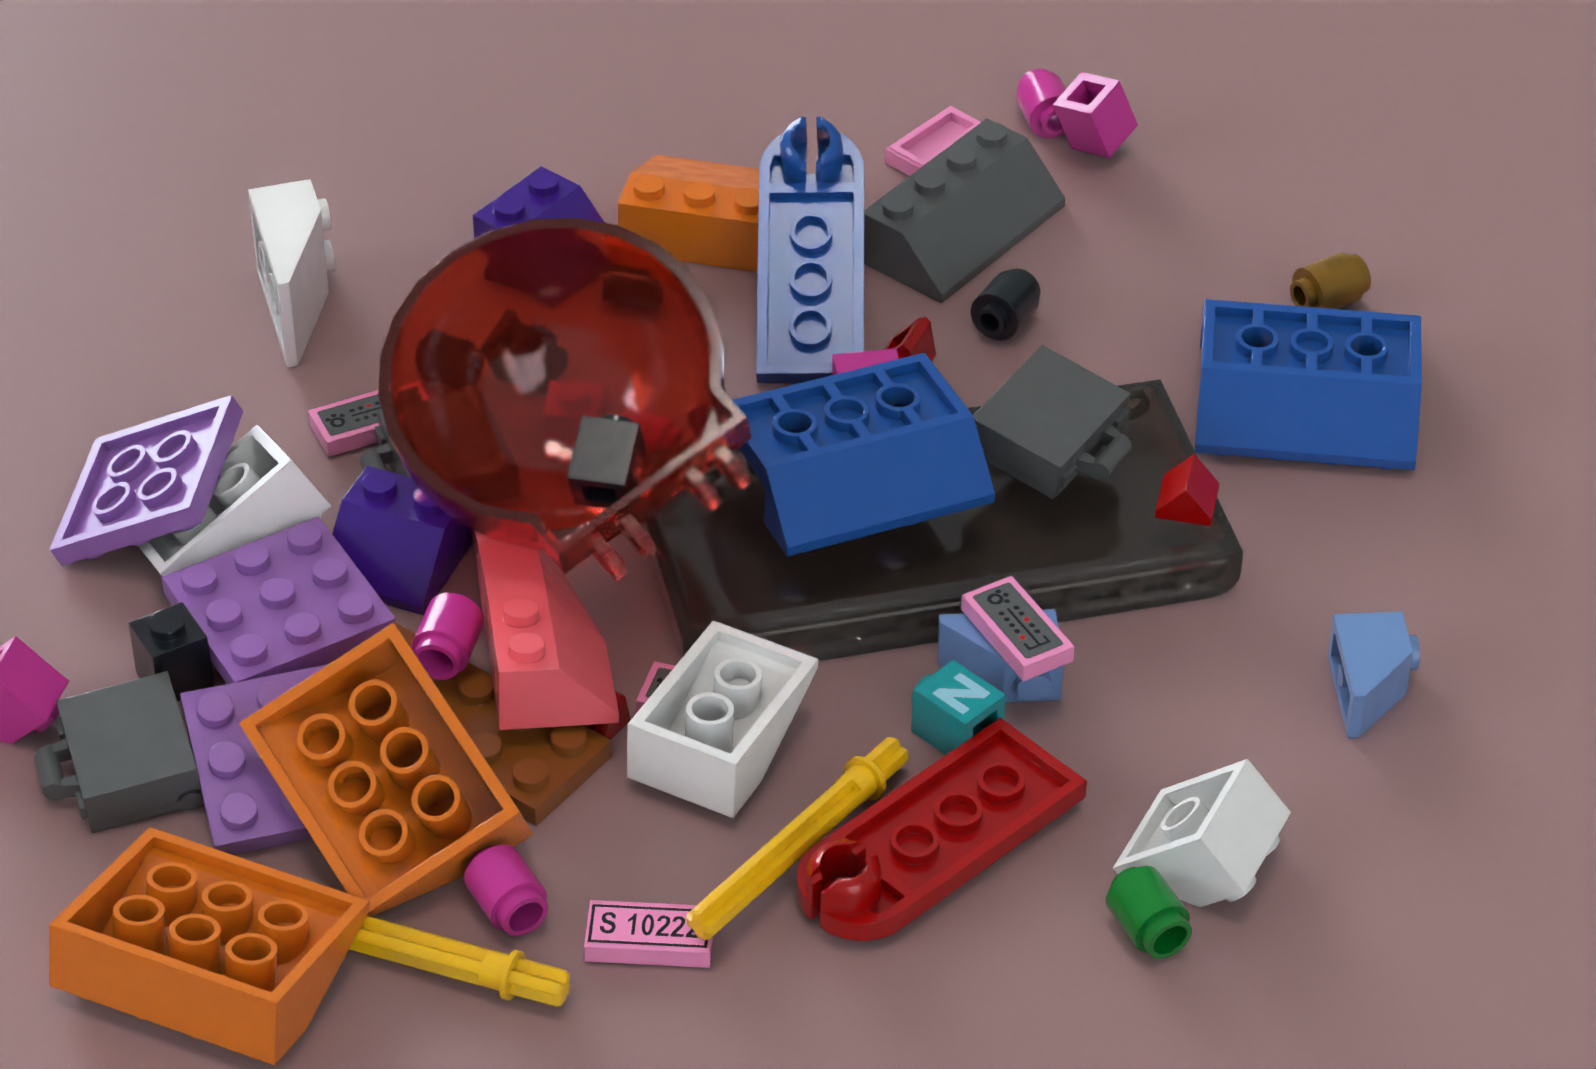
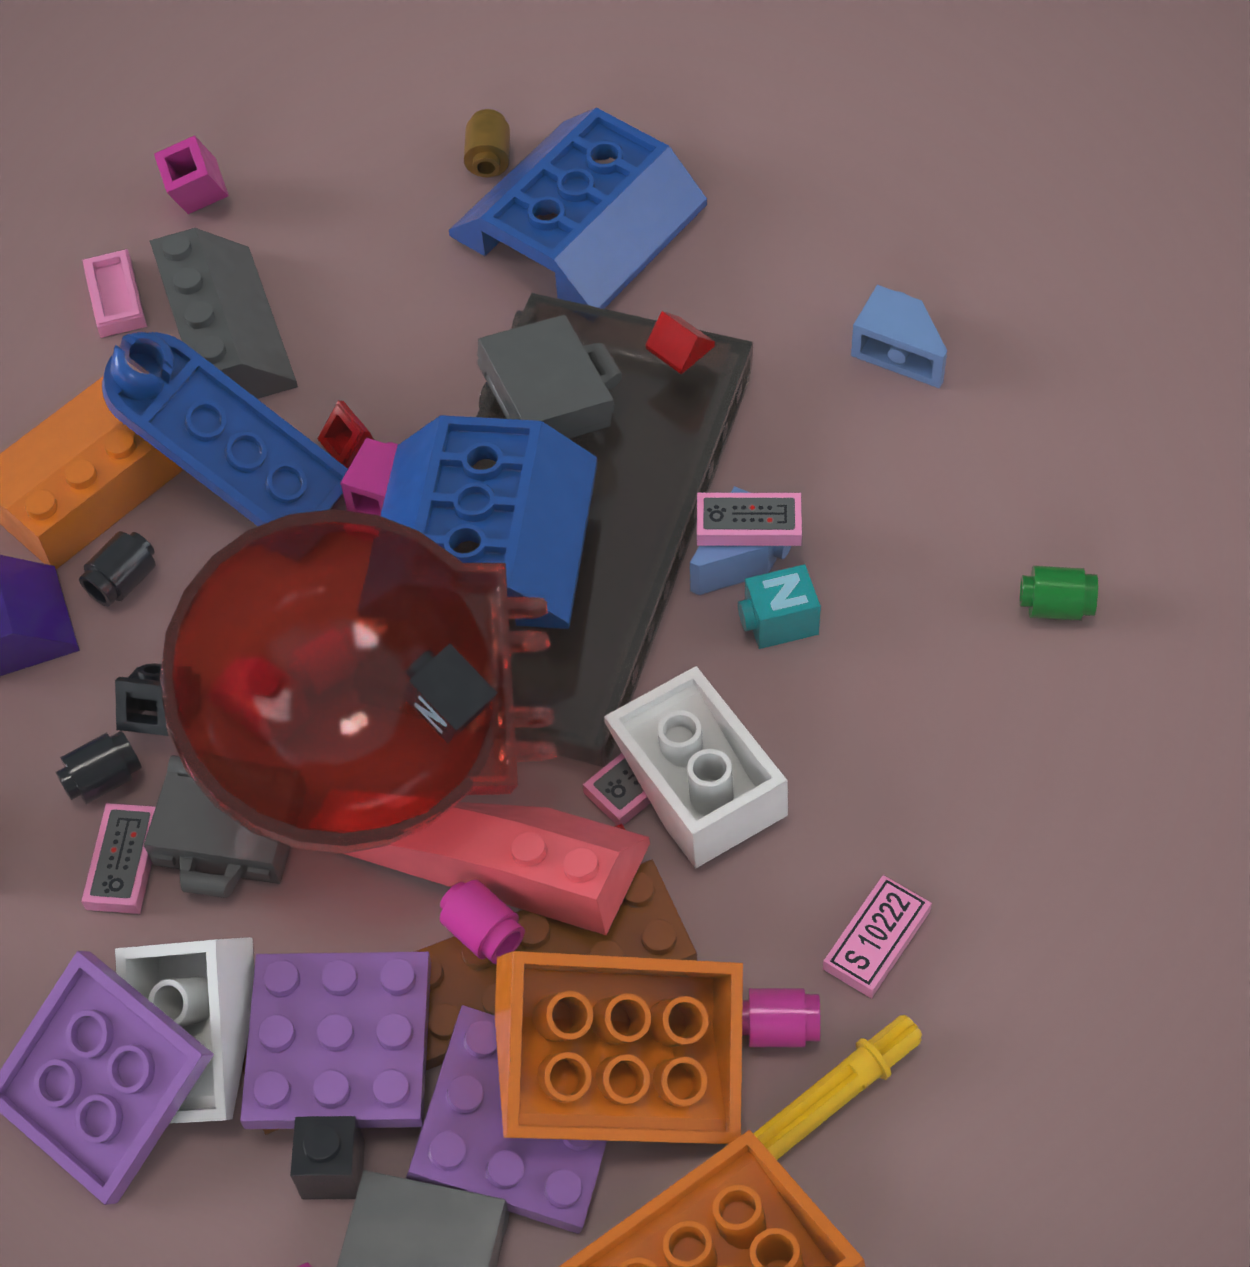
camera: 55 degrees left, 15 degrees up
(399, 539) = (308, 904): dark purple slope -> none
(862, 781) = (809, 707): yellow axle -> none
(934, 834) = (895, 690): red plate -> none
(1006, 304) = (349, 344): black brick -> none
(1035, 96) = (136, 199): dark pink brick -> none
(1209, 834) = (1004, 522): white slope -> none

